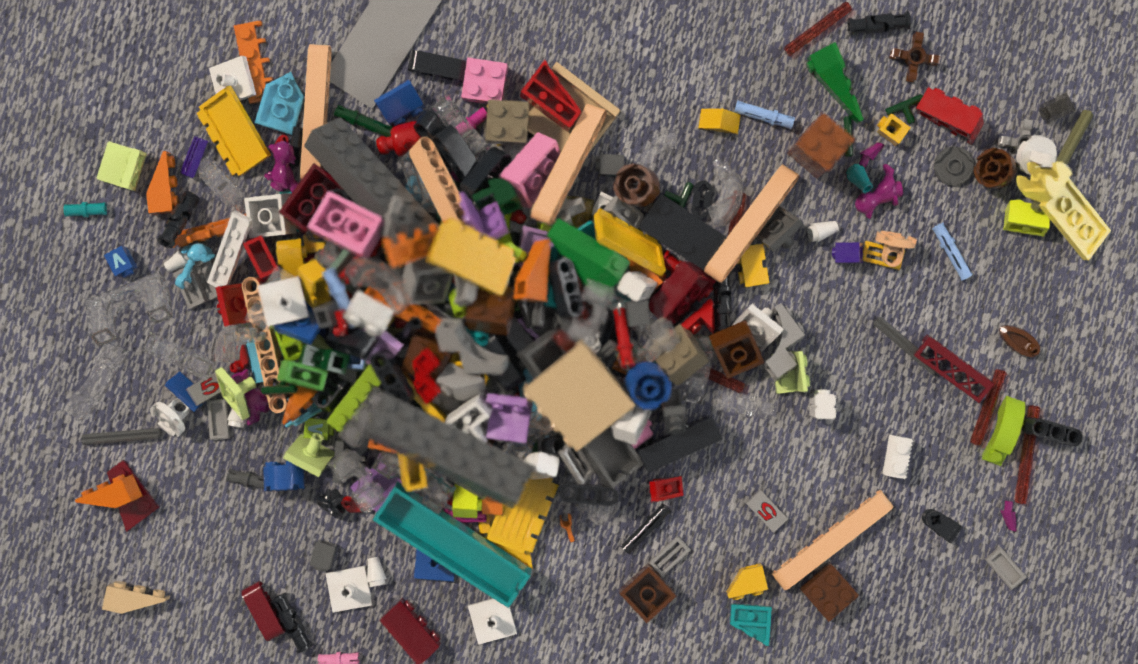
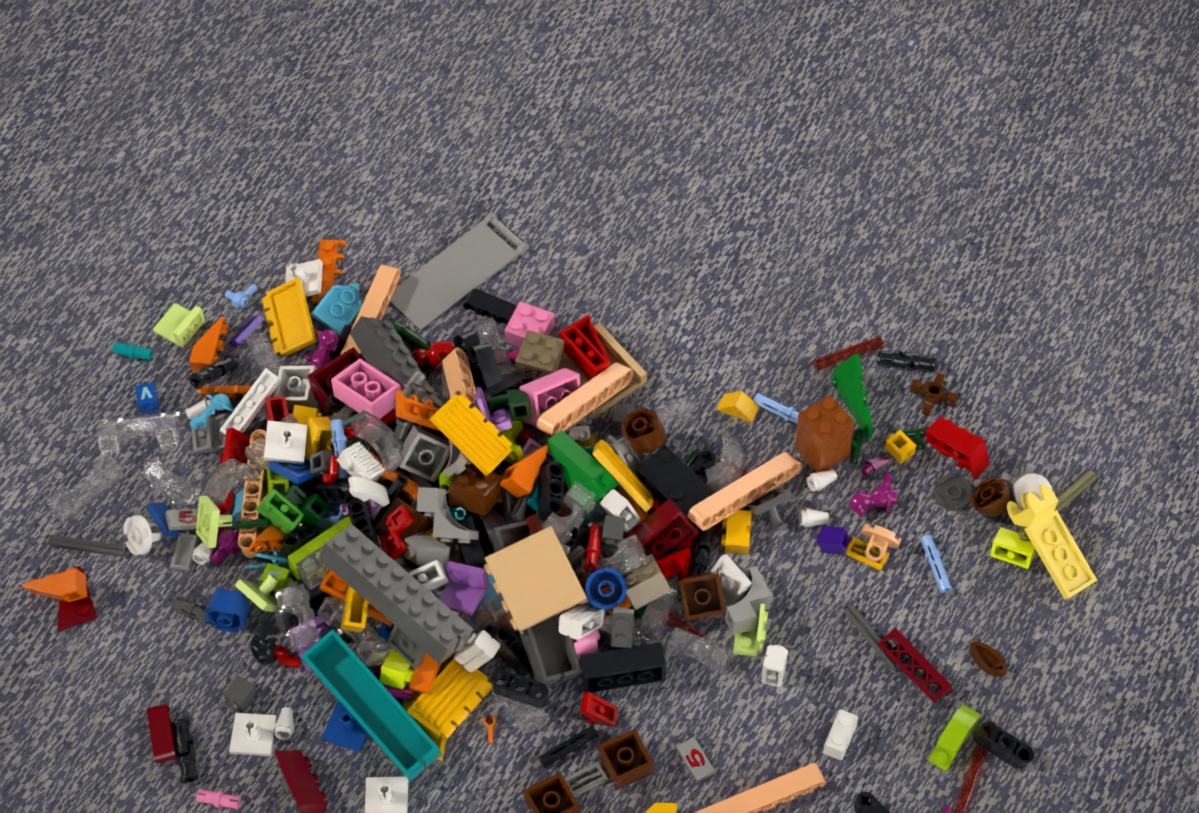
camera: 15 degrees right, 30 degrees down
(121, 599) = (34, 690): tan slope -> none
(174, 119) = (240, 299): none -> light blue piece
(386, 342) = (367, 489): none -> white slope
(400, 103) = (446, 322): blue slope -> none
(574, 464) = (513, 654): light grey tile -> none
(704, 533) = (625, 759): none -> reddish brown brick
(820, 186) = (820, 480): none -> white cone
(859, 177) = (857, 477): teal cone -> none
(988, 407) = (943, 714): clear red axle -> none
(1056, 108) = (1061, 463): clear smoke brick -> none

